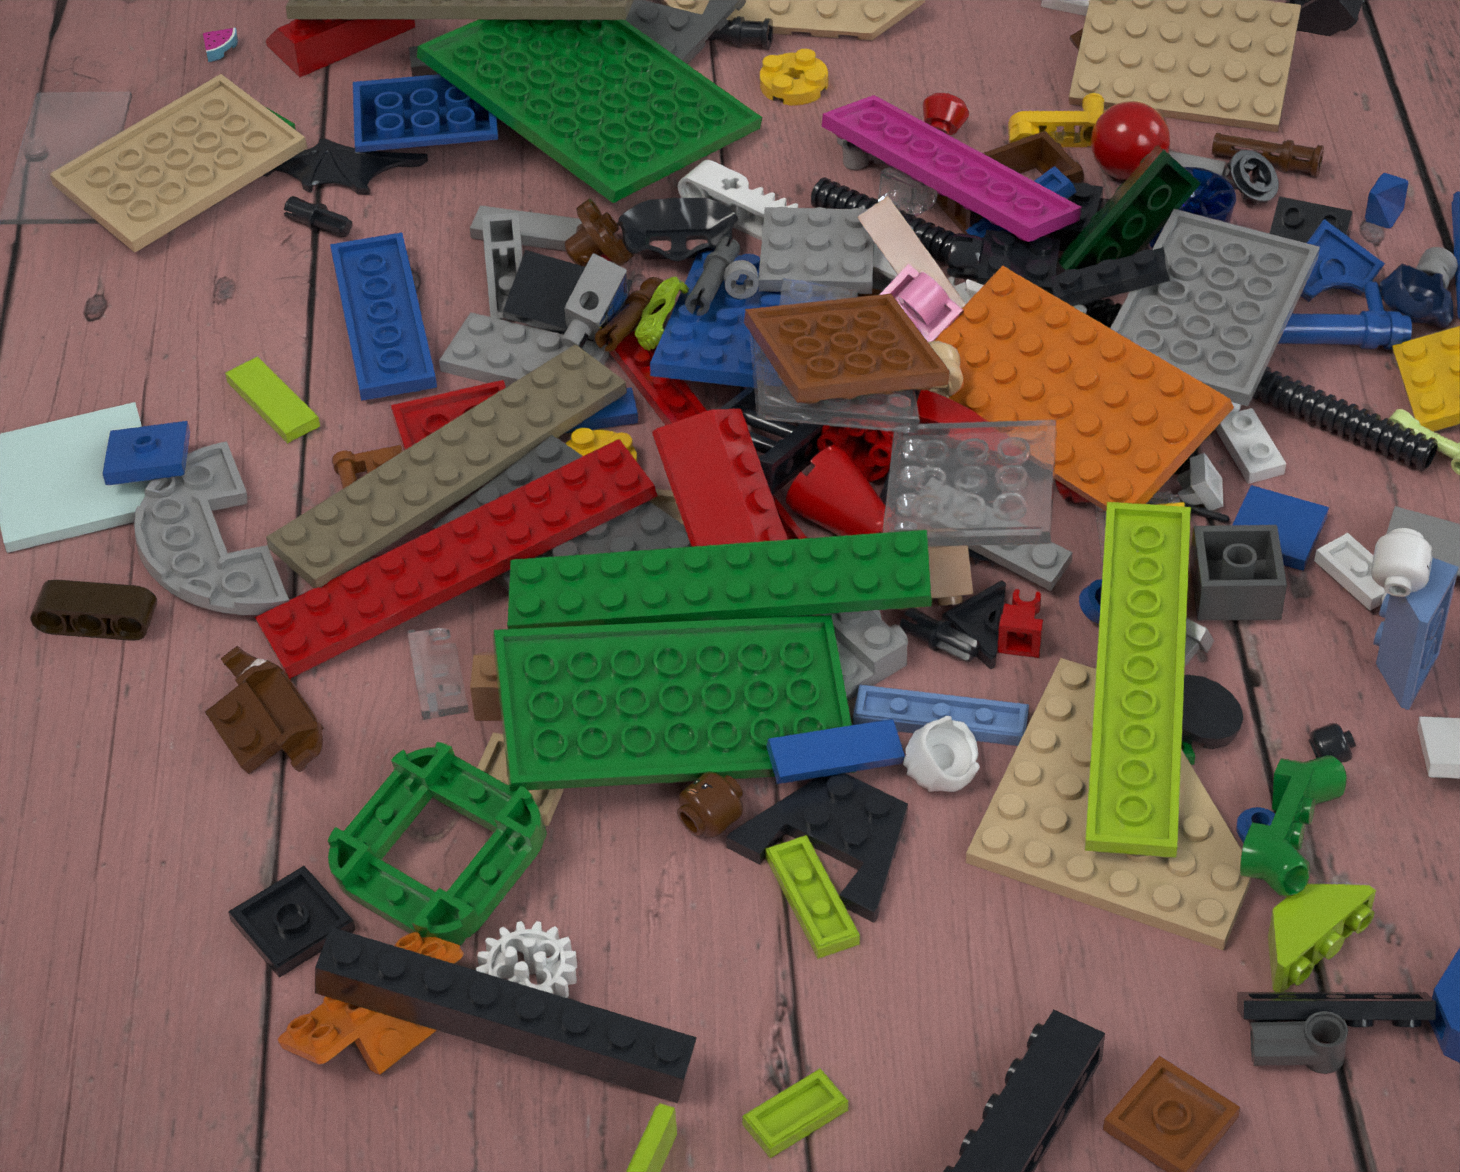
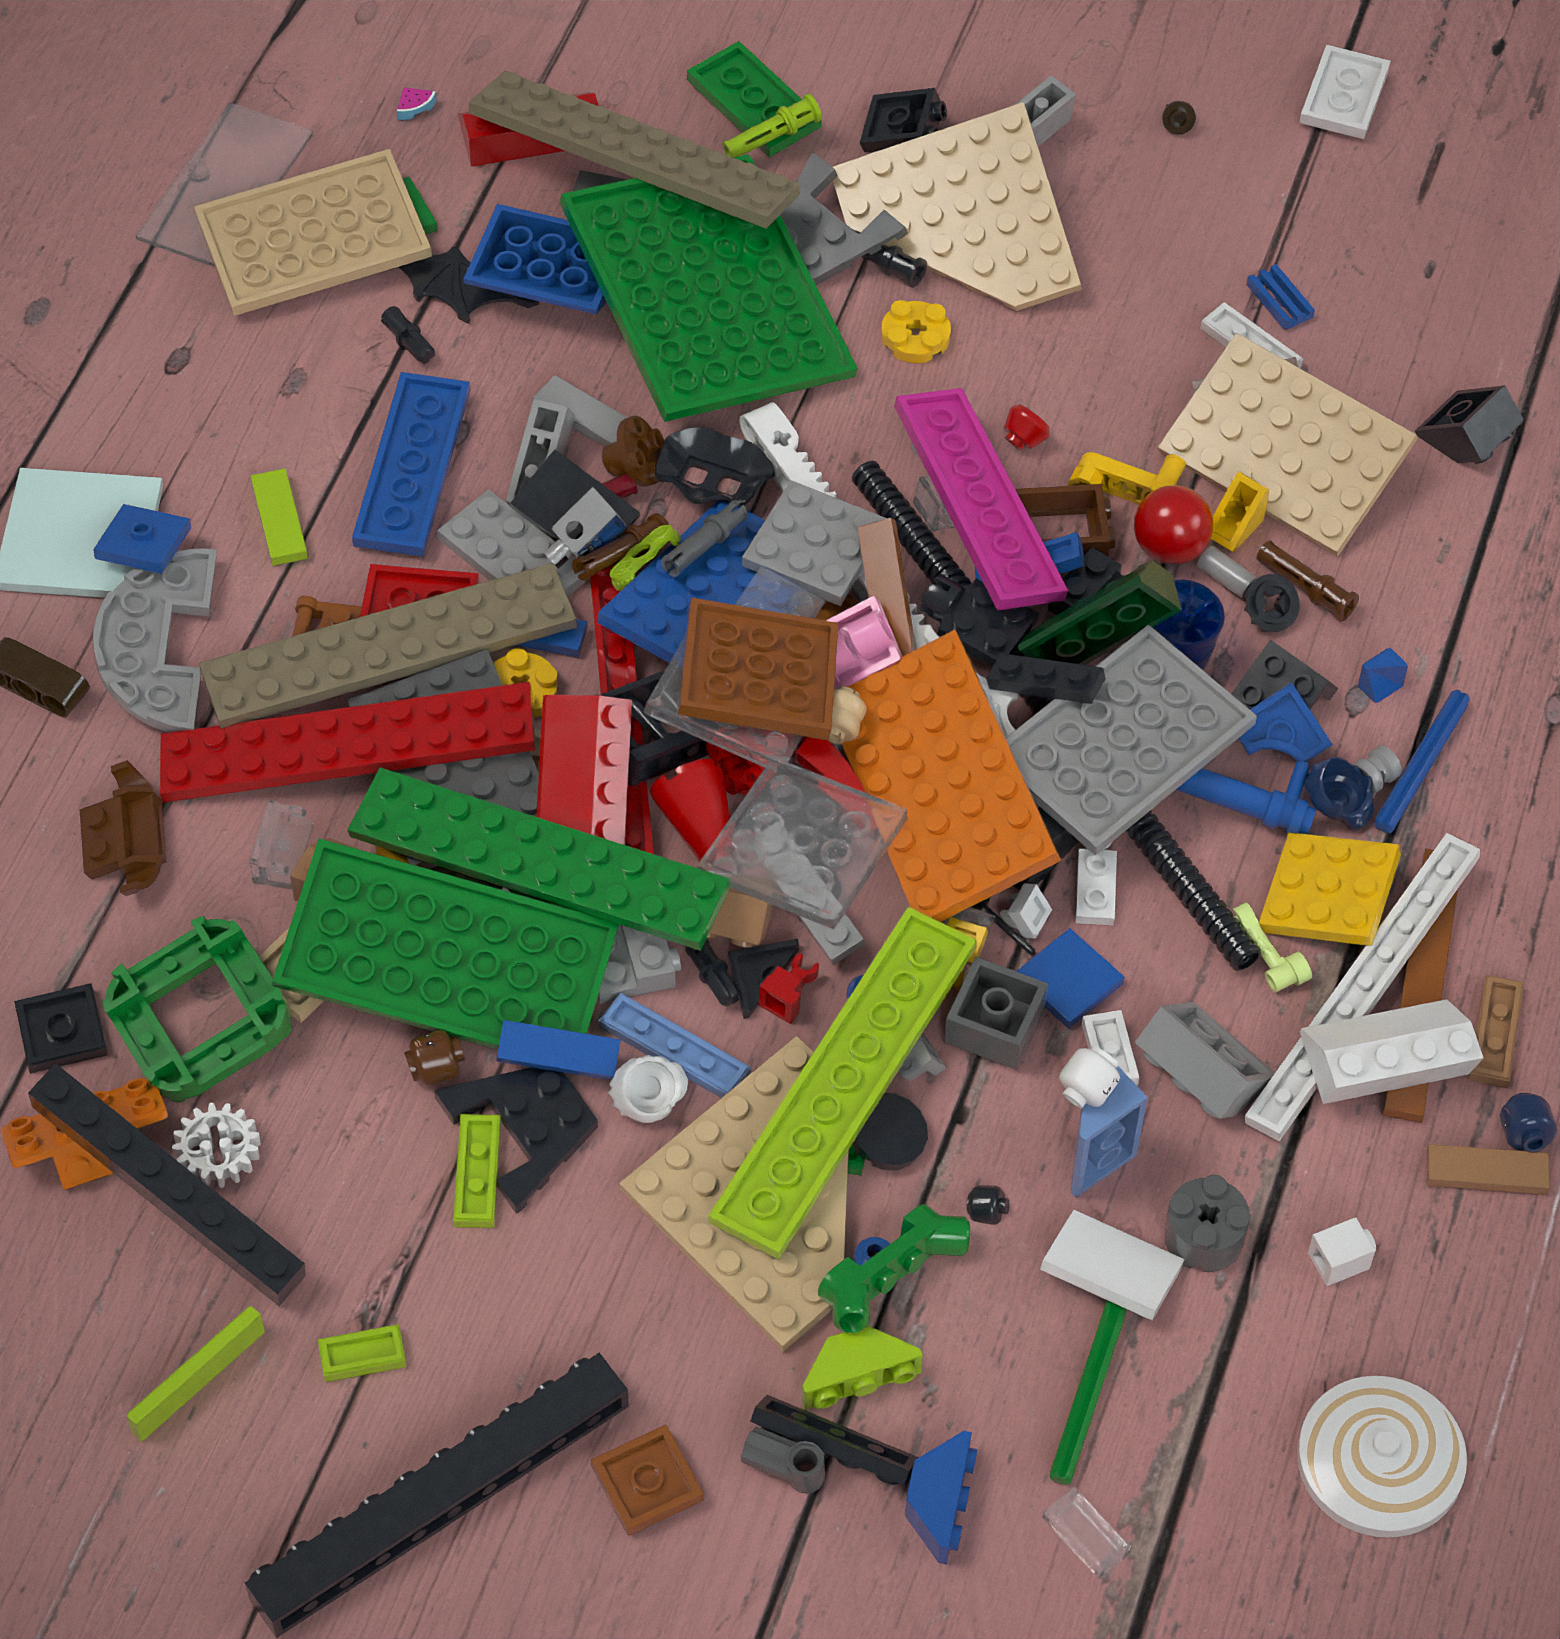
camera: 20 degrees right, 10 degrees up
(732, 274) = (721, 560): light grey bush -> none
(1179, 110) = (1239, 511): none -> yellow slope

